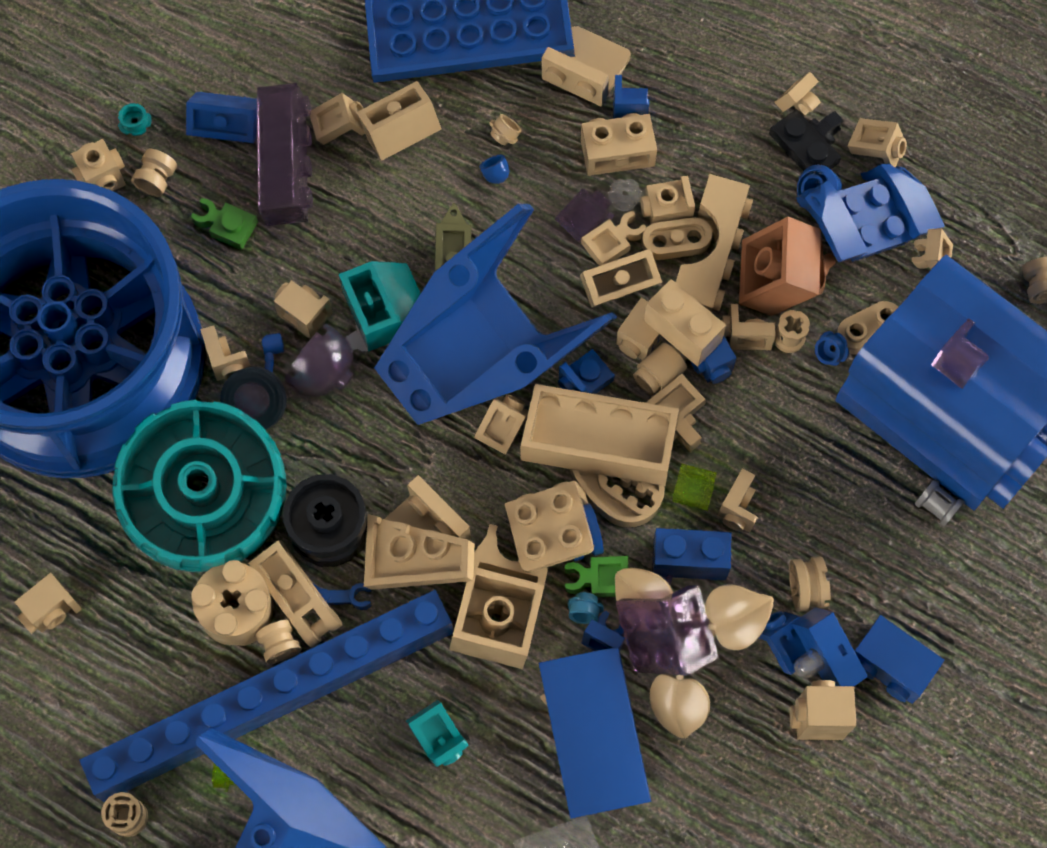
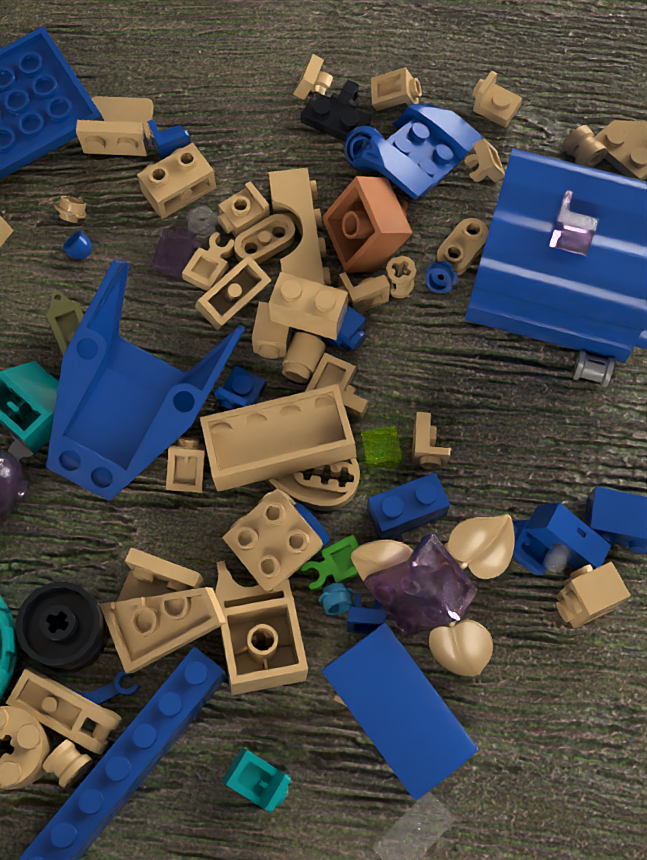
camera: 25 degrees left, 0 degrees up
(809, 584) = (521, 487): tan wheel -> none
(976, 193) = (494, 101): none -> tan bracket

